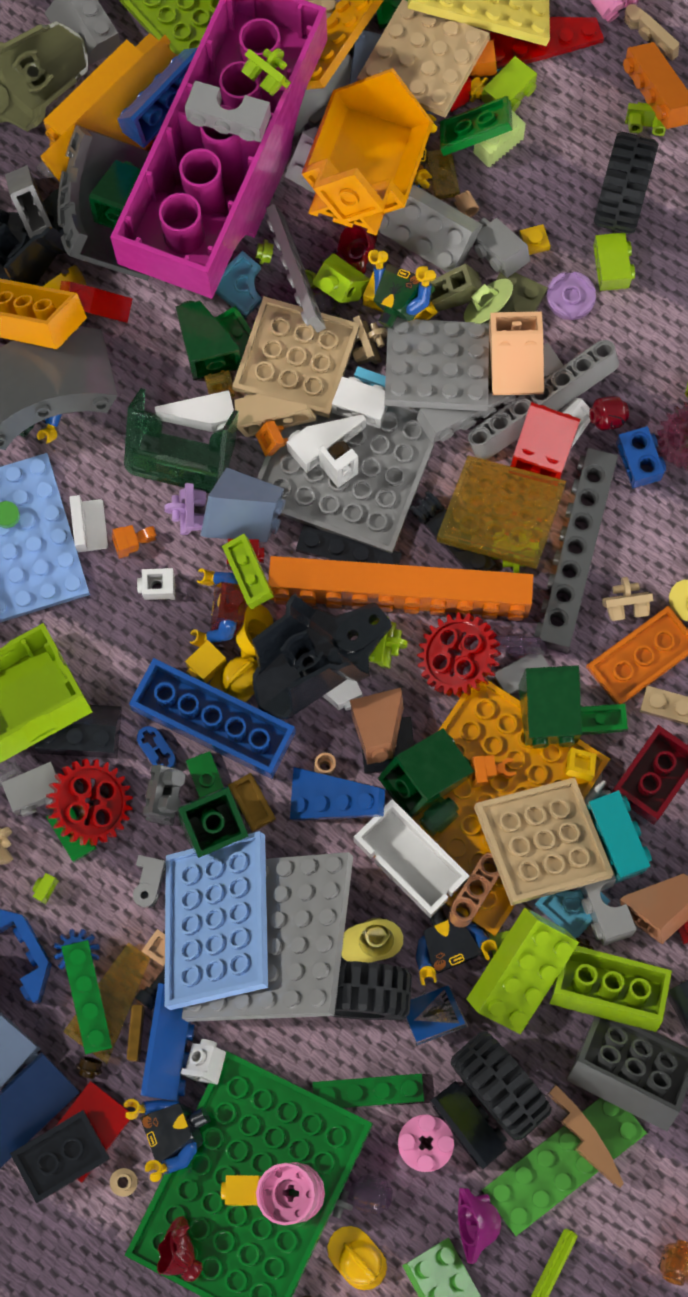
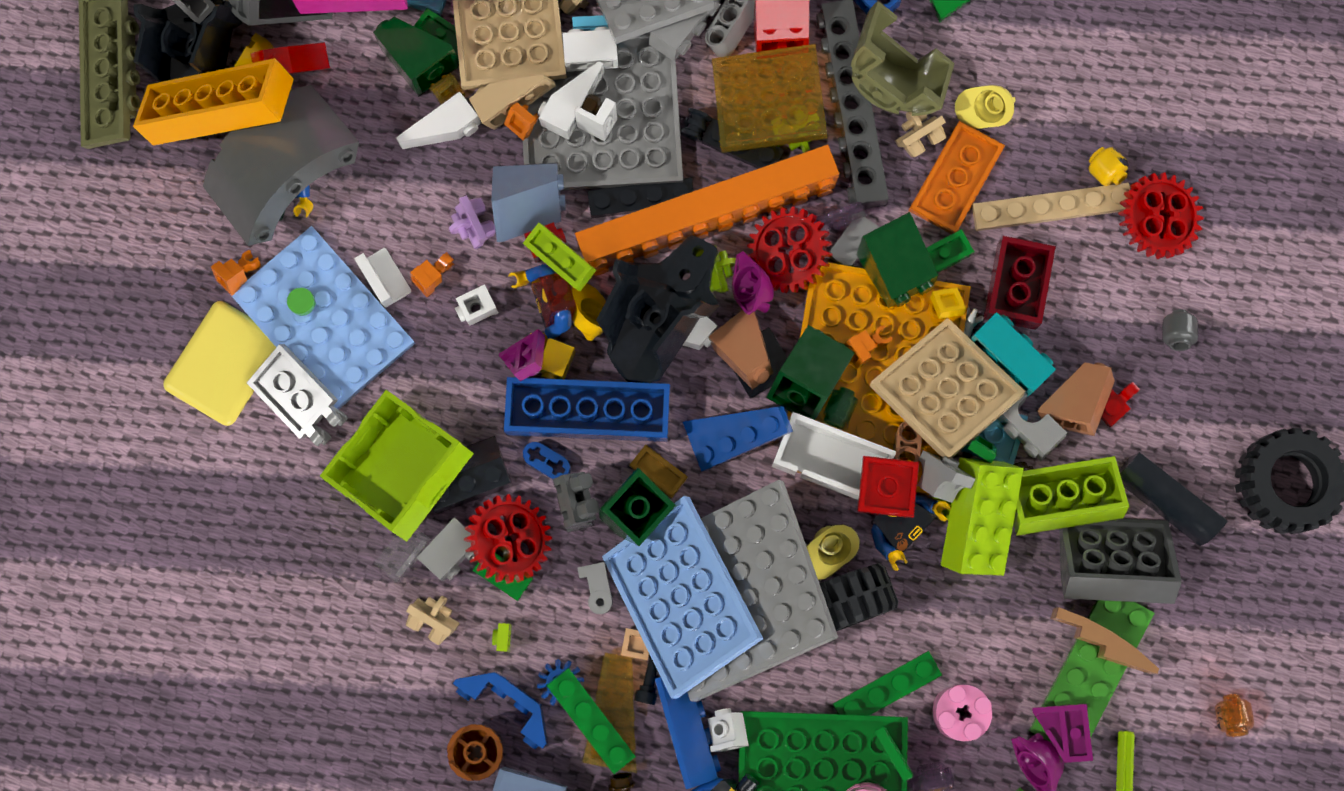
camera: 25 degrees left, 5 degrees up
(135, 1033) = (650, 733): pearl gold tile -> none
(174, 458) = (439, 178): clear green windscreen -> none
(179, 646) = (525, 356): none -> magenta wing
(204, 774) = (605, 467): green plate -> none
(236, 678) = (591, 361): yellow piece -> none
(325, 758) = (712, 400): light nougat hose -> none
(343, 1149) = (894, 753): none -> green tile
(409, 671) = (751, 285): none -> magenta hat
(434, 1015) = (918, 592): piece -> none
(446, 904) = (888, 486): none -> red tile
(469, 1124) = (994, 678): black slope -> none
(500, 917) = (942, 476): none -> light grey brick
(501, 1085) = (1011, 630): black tyre -> none
(514, 1203) = (1068, 730): none -> magenta wing
(552, 908) = (983, 448): none -> green tile
(622, 537) = (893, 76): none -> olive cylinder

